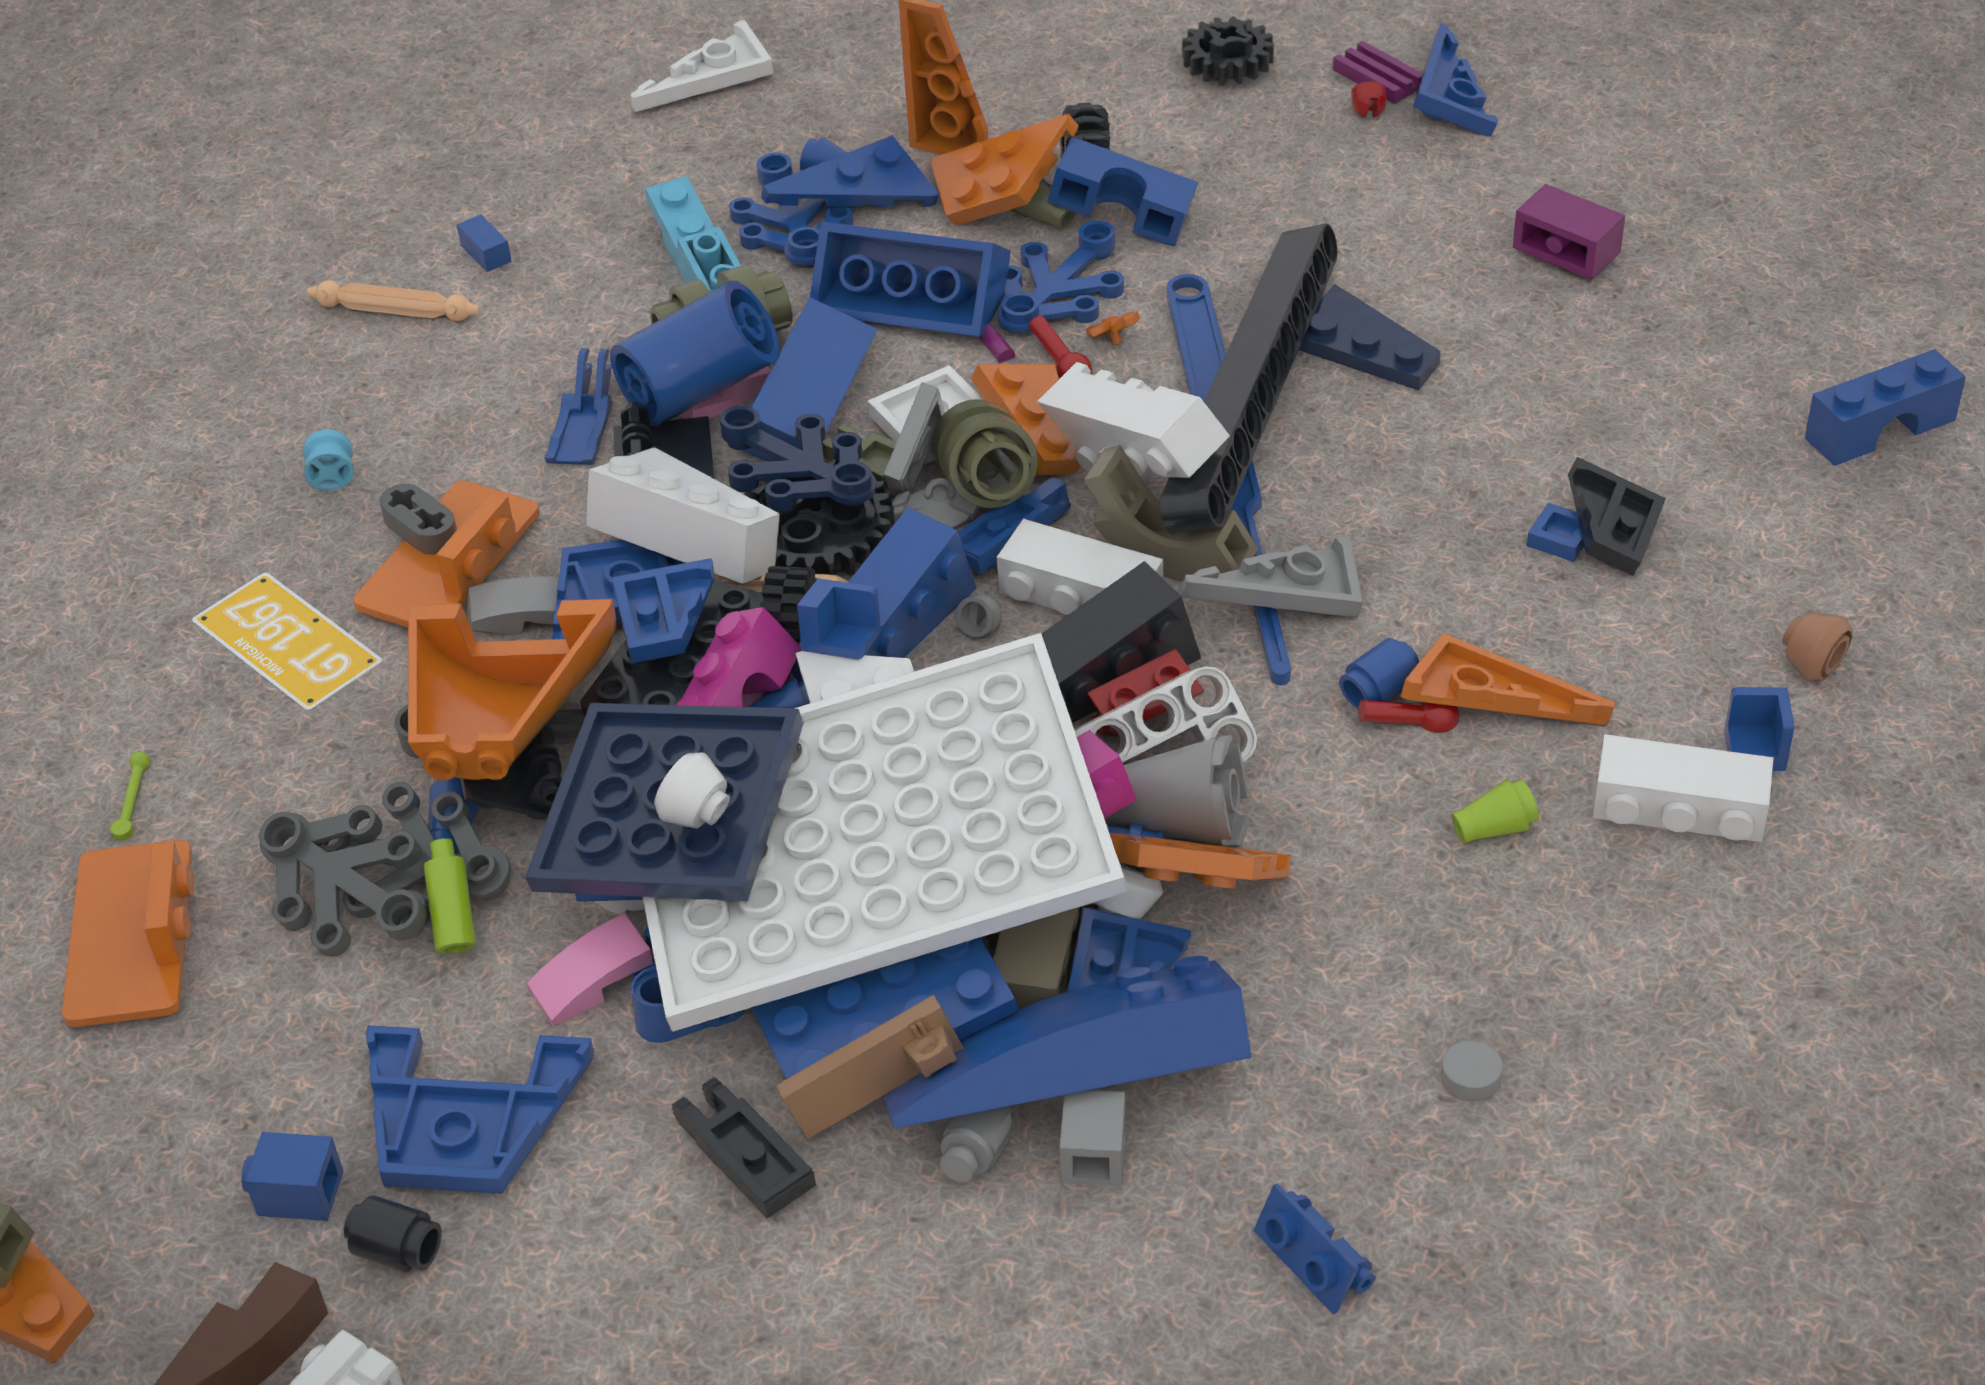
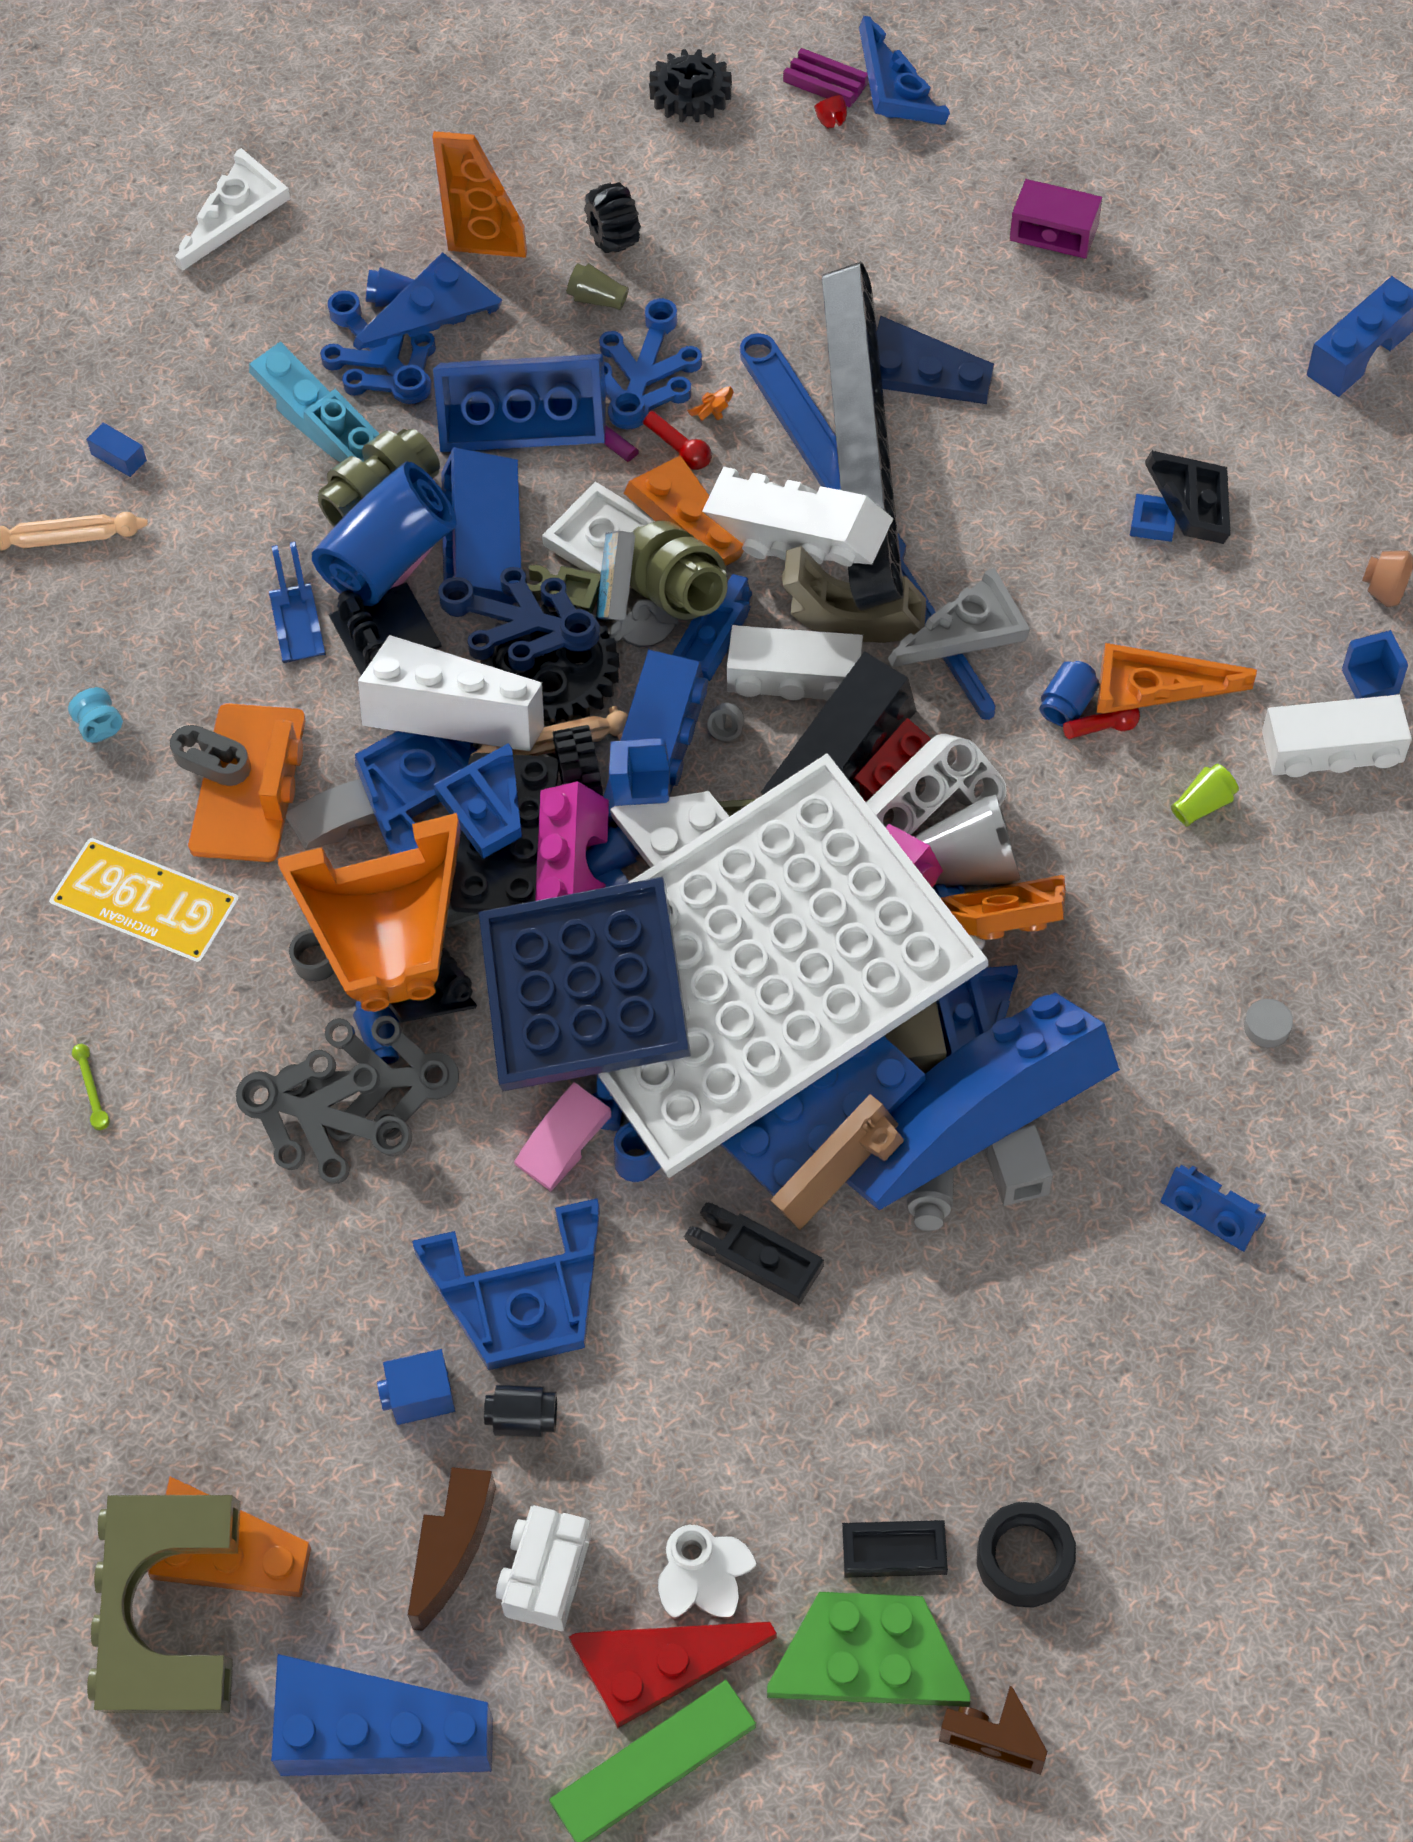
camera: 20 degrees left, 15 degrees up
(128, 933) = (163, 1213): orange bracket -> none
(449, 900) = (423, 1110): lime cylinder -> none
(692, 792) = (619, 981): white cone -> none
(998, 171) = (552, 270): orange wing -> none
(1097, 175) = (698, 262): blue arch -> none

